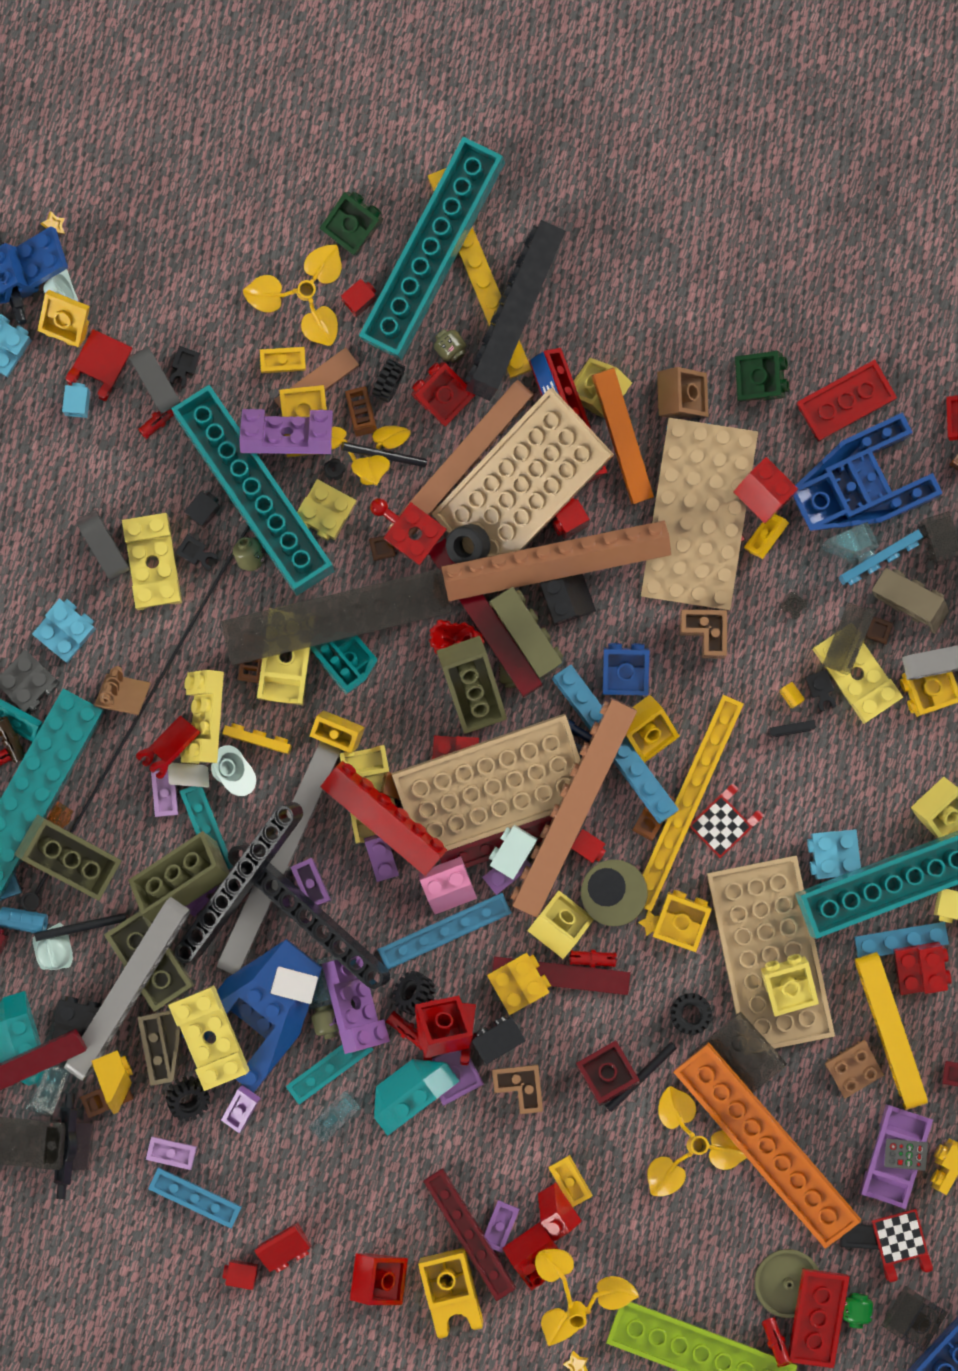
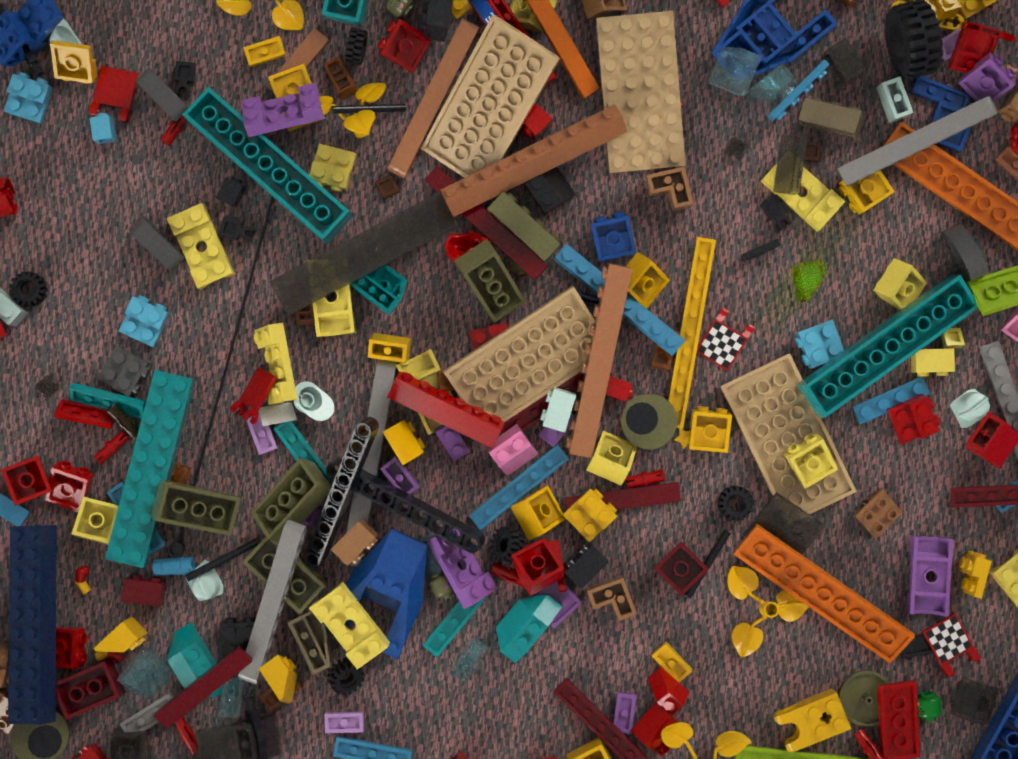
camera: 10 degrees left, 5 degrees up
(122, 693) = (205, 360): medium nougat hinge -> none
(240, 943) = (352, 544): none -> medium nougat brick
(240, 1109) = (391, 673): plate -> none
(248, 553) = (278, 219): olive head -> none
(257, 738) = (326, 369): yellow plate -> none
(294, 985) = (408, 565): white sticker -> none
(326, 844) = (404, 441): none -> yellow slope
(334, 463) = (326, 131): black plate -> none
(399, 533) = (404, 156): red plate -> none
(459, 966) = (538, 513): none -> yellow slope
(476, 534) = (446, 169): black tyre -> none
(711, 1288) = (809, 725): none -> yellow brick
(765, 490) = (692, 57): red slope -> none
(766, 536) = (699, 97): yellow plate -> none
(791, 695) = (753, 223): yellow slope -> none
(810, 516) = (734, 70): none -> clear light blue slope
(838, 772) = (808, 278): none -> clear neon green slope
(891, 1030) = (901, 475): yellow beam -> none
(906, 1154) = (938, 572): dark grey sticker -> none

